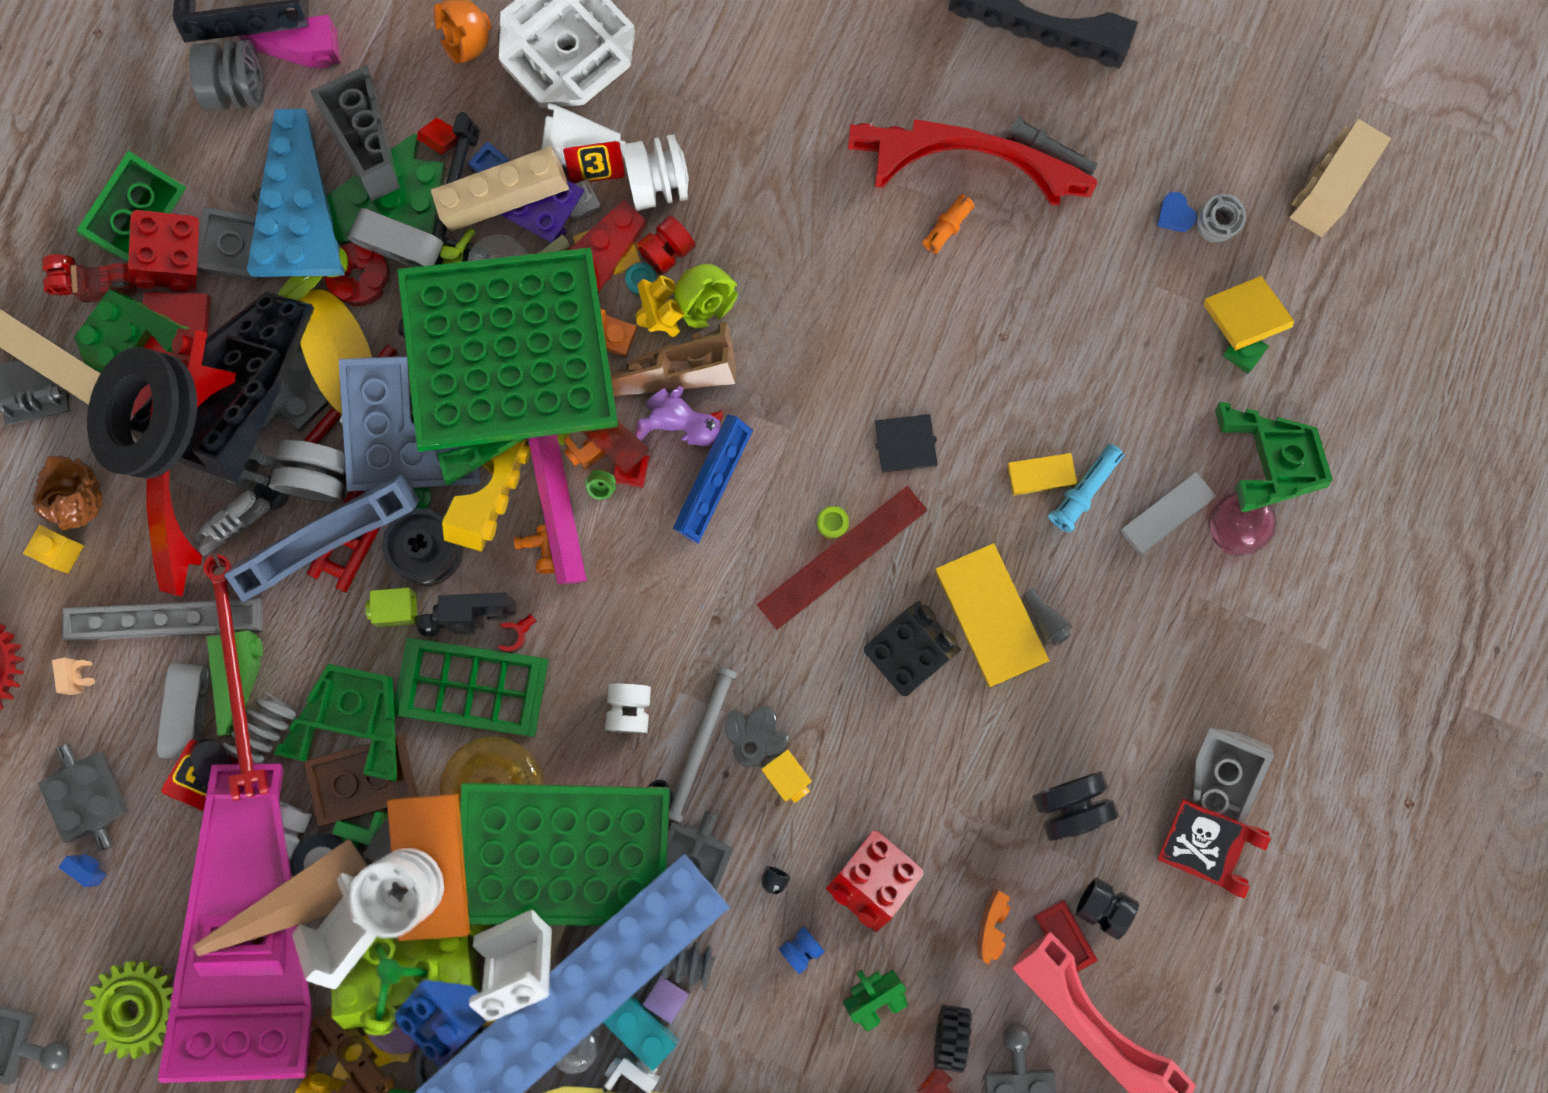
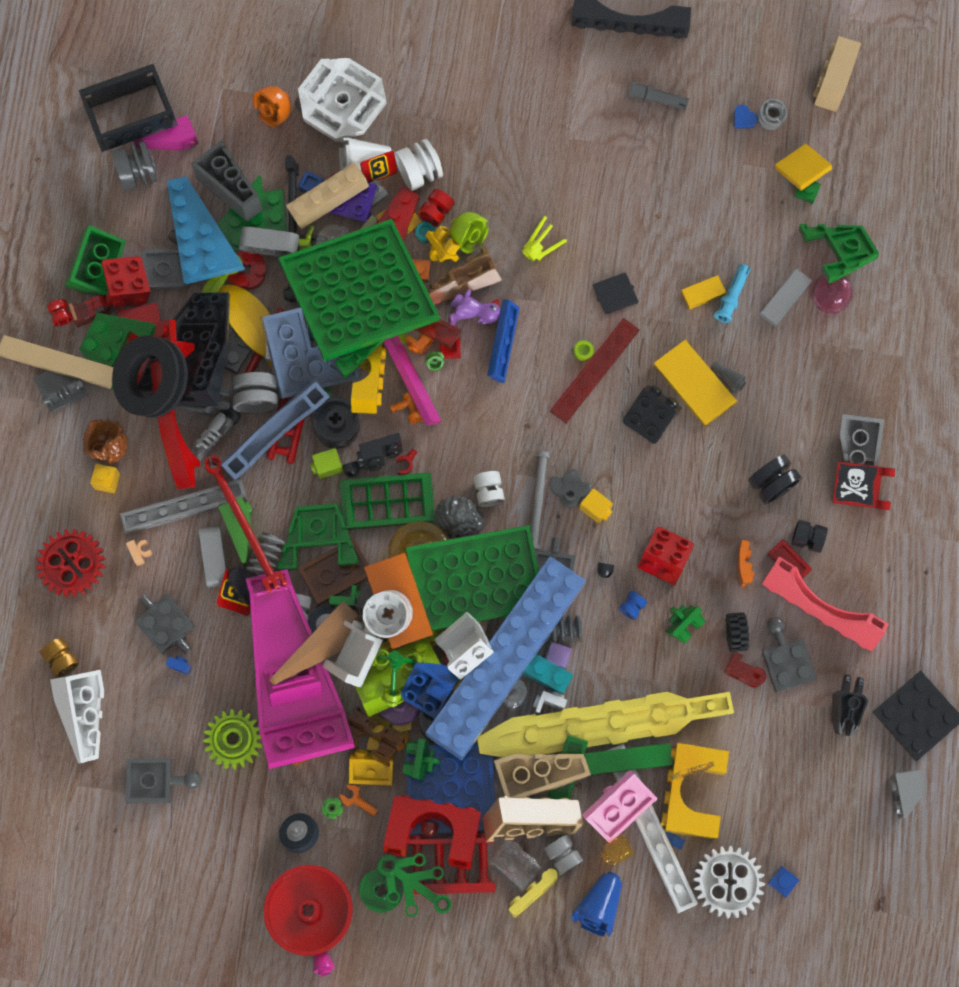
camera: 15 degrees left, 5 degrees down
(437, 136) = (275, 173): red tile -> none
(569, 744) = (458, 517): none -> dark grey hair
(797, 343) = (533, 248): none -> neon yellow plant
(901, 147) = (565, 115): red slope -> none
(948, 224) = (606, 155): orange pin -> none

